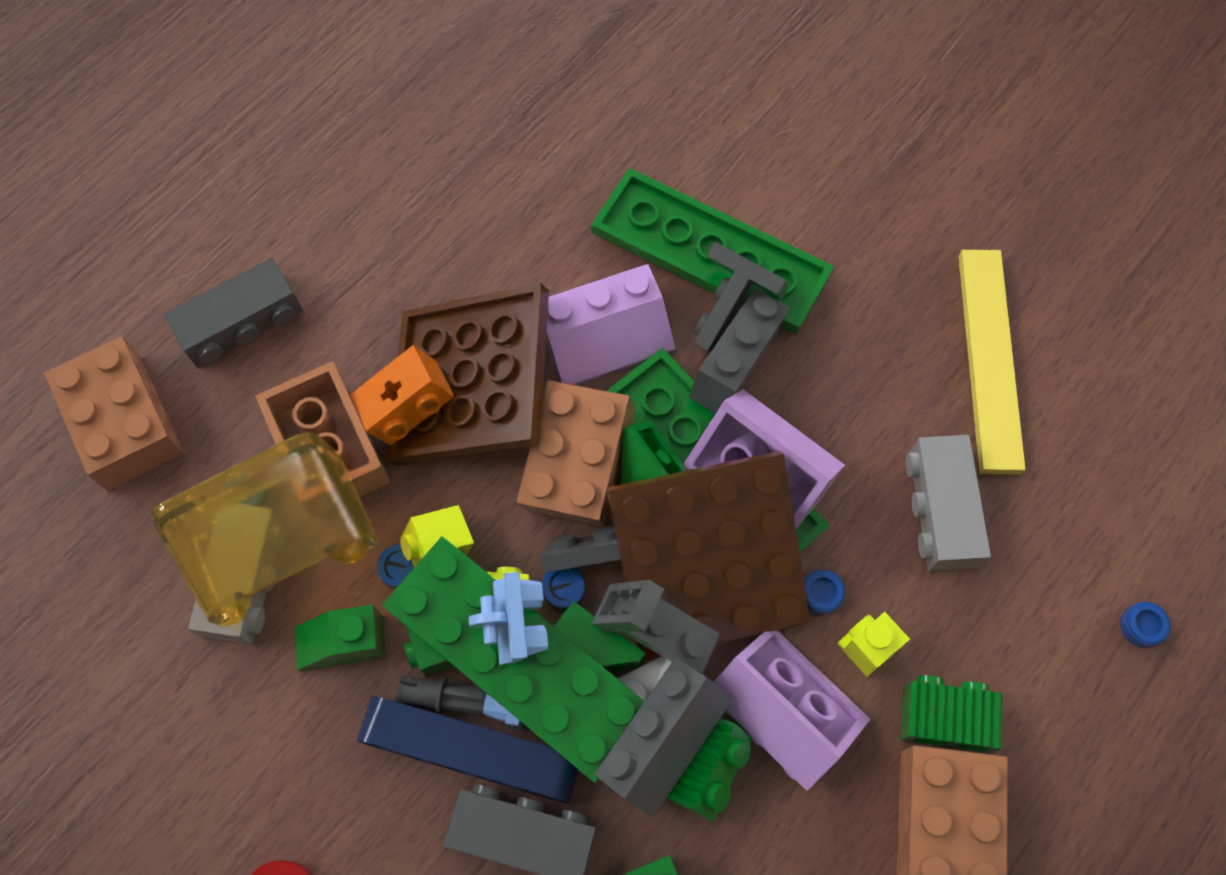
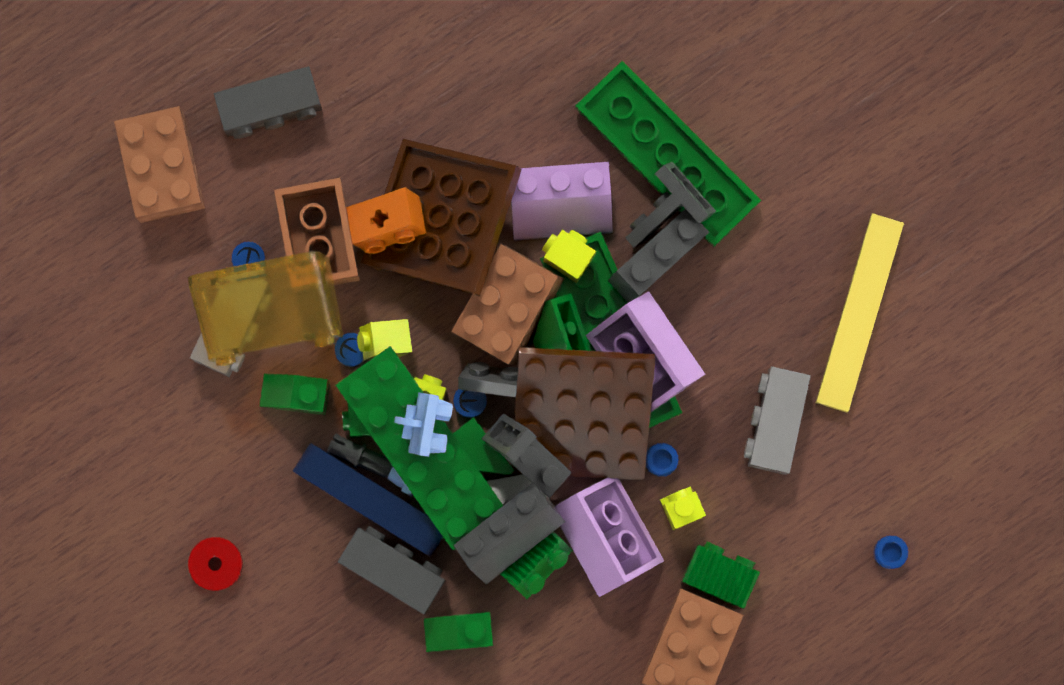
camera: 10 degrees right, 15 degrees up
(634, 374) = (568, 254): none -> neon yellow brick

